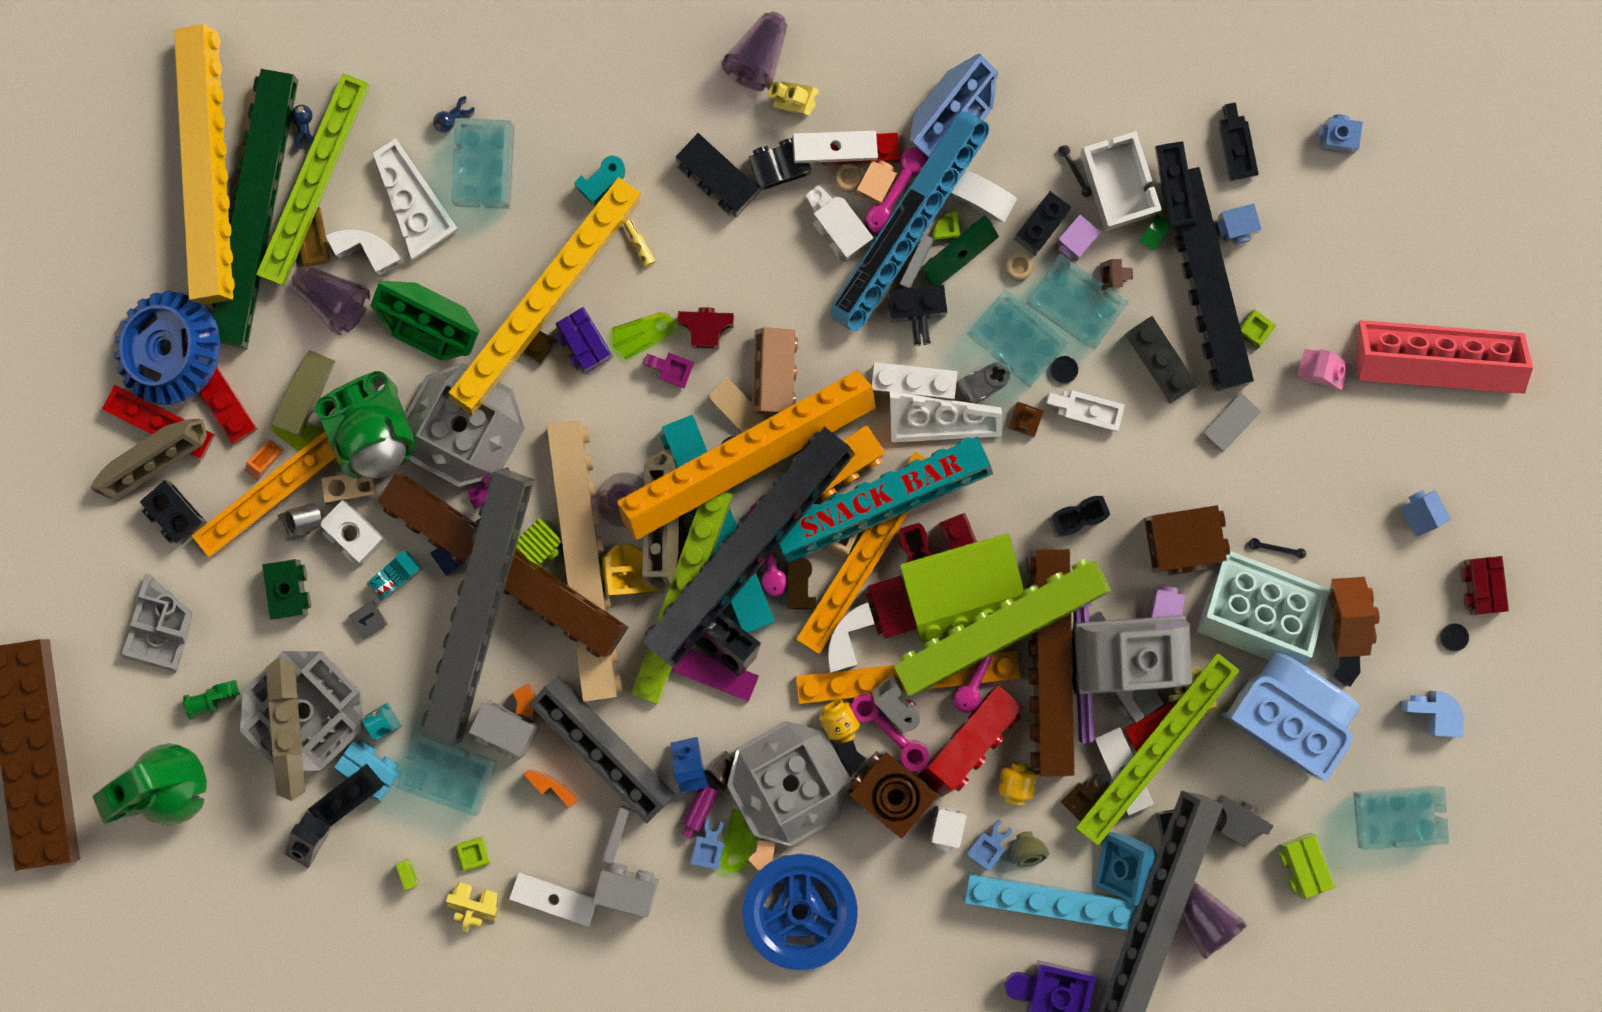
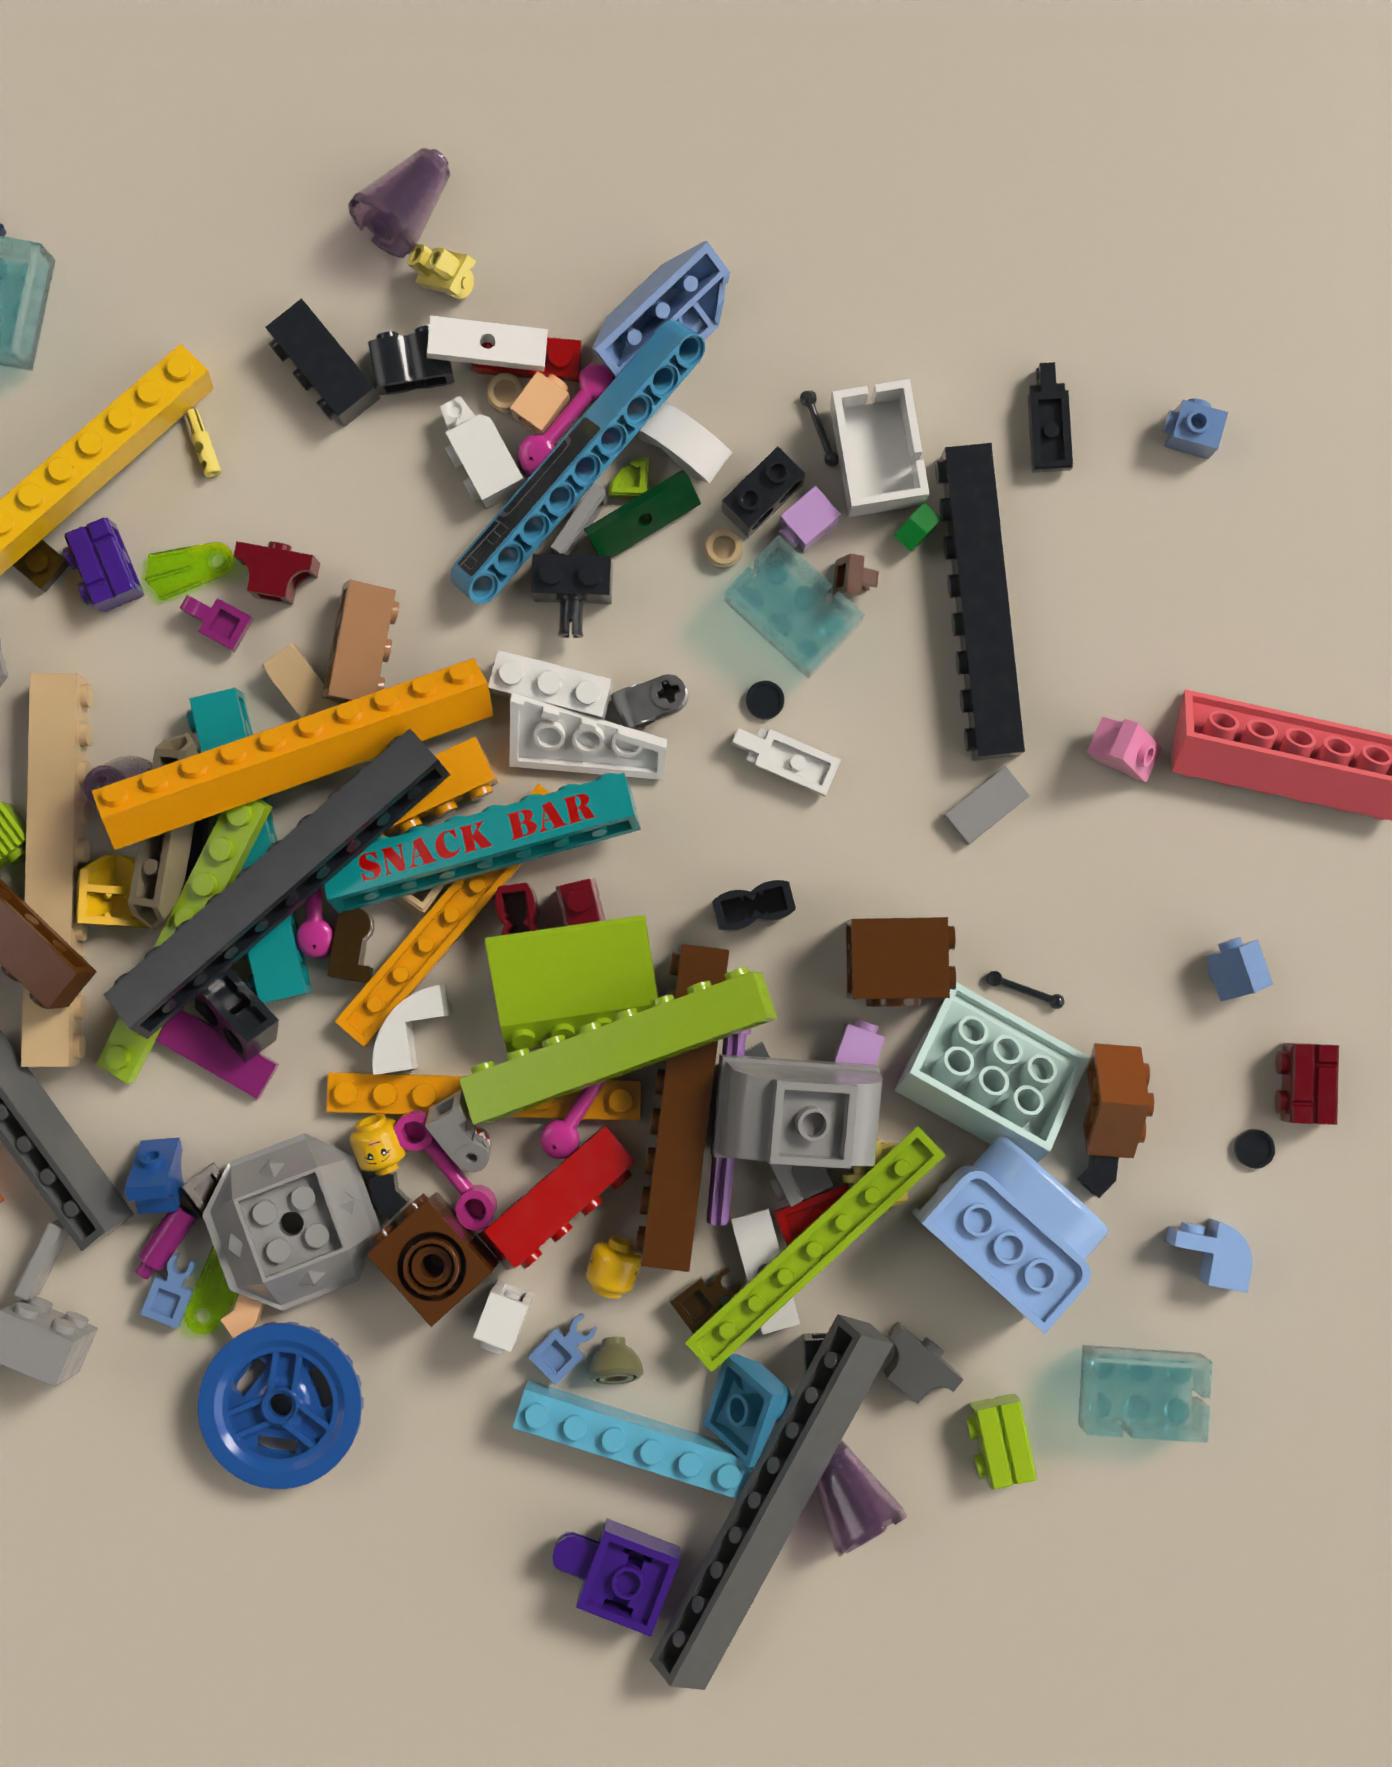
camera: 10 degrees right, 0 degrees up
(601, 180) = (173, 331): teal leg -> none
(891, 607) = (471, 996): dark red brick -> none
(1017, 338) = (703, 645): clear light blue piece -> none
(1025, 419) = (701, 761): reddish brown tile -> none
(1161, 359) = (900, 703): pearl dark grey brick -> none
(1176, 184) = (955, 462): black tile -> none
(1238, 224) = (1035, 531): medium blue brick -> none
(1256, 328) = (1040, 680): lime tile -> none

